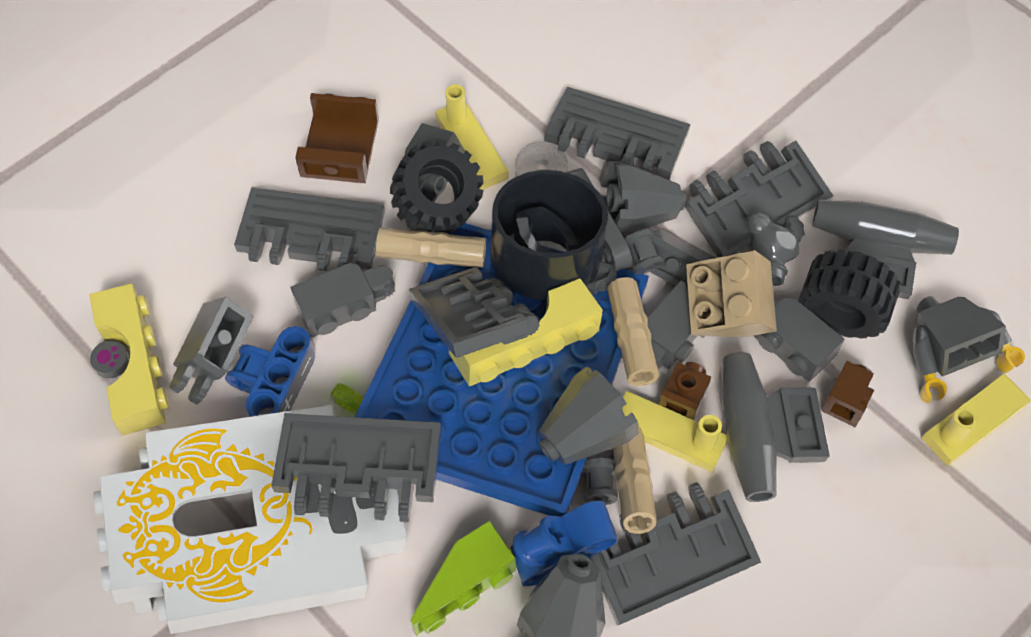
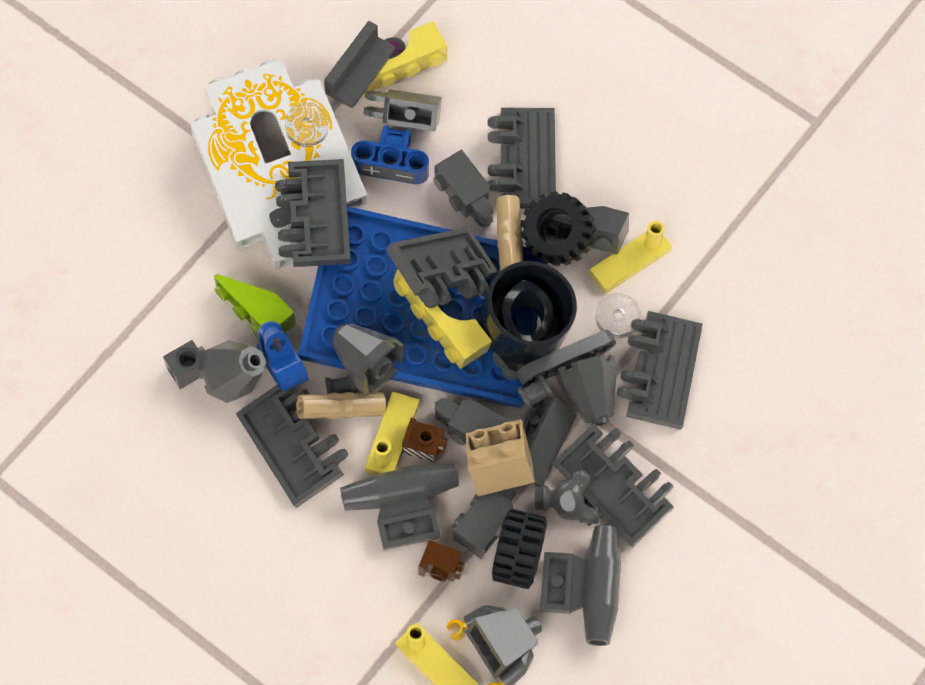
camera: 80 degrees right, 5 degrees up
(134, 387) = (358, 66): none -> dark grey panel
(213, 475) = (303, 113): none -> clear piece
(339, 138) = (613, 162): reddish brown panel -> none
(346, 398) = (383, 205): clear neon green tile -> none
(632, 332) = (457, 388): tan axle -> none

